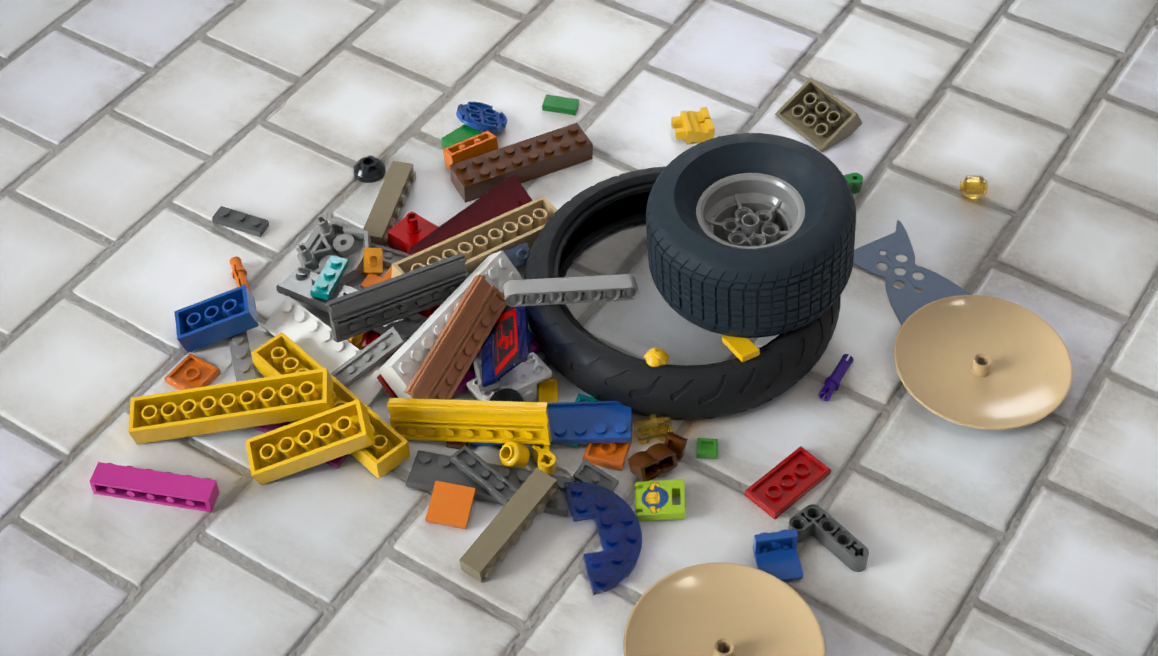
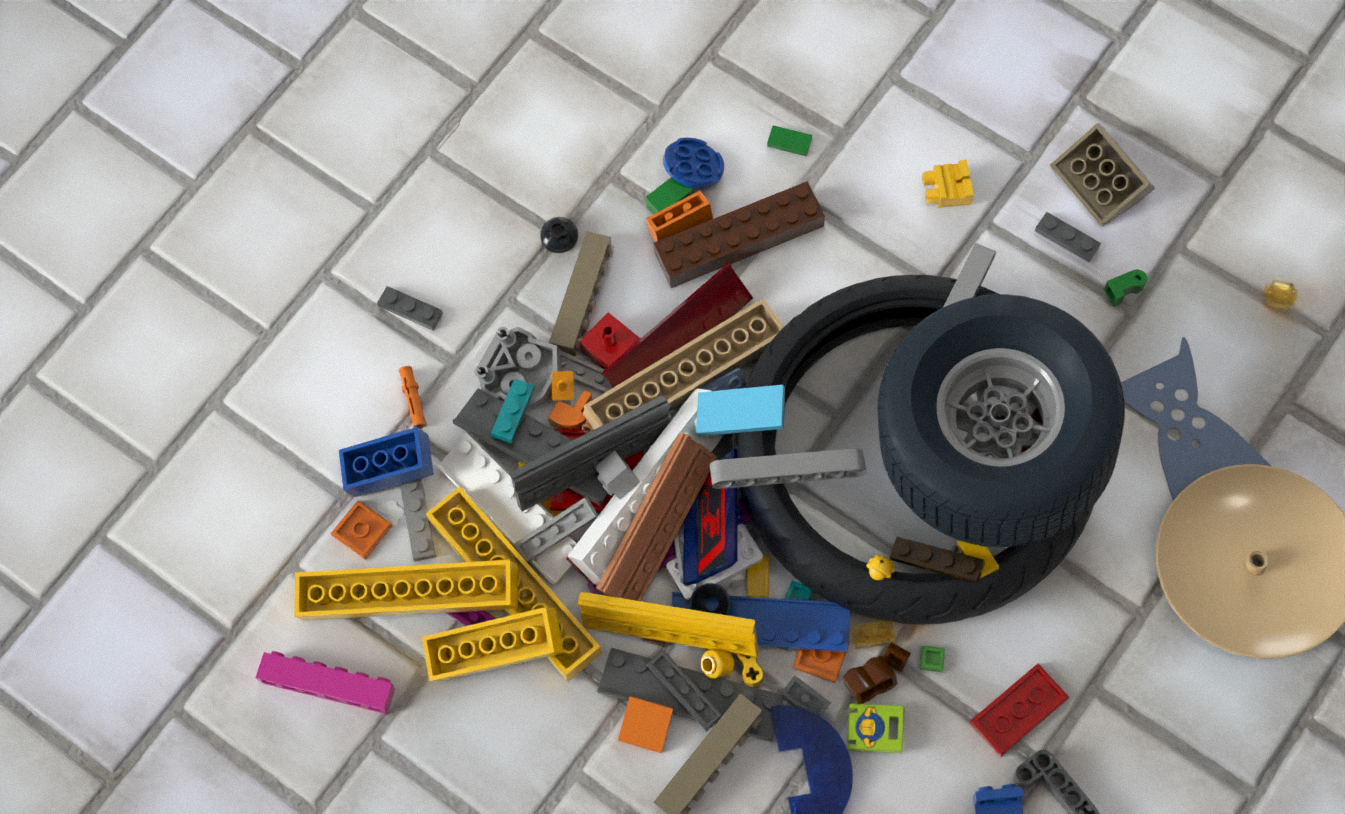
camera: 10 degrees right, 20 degrees up
(421, 311) = (616, 475): none -> light grey brick
(528, 256) = (740, 410): none -> medium azure tile
(706, 349) = (937, 560): none -> dark brown plate
(832, 382) = (1082, 577): dark purple pin -> none

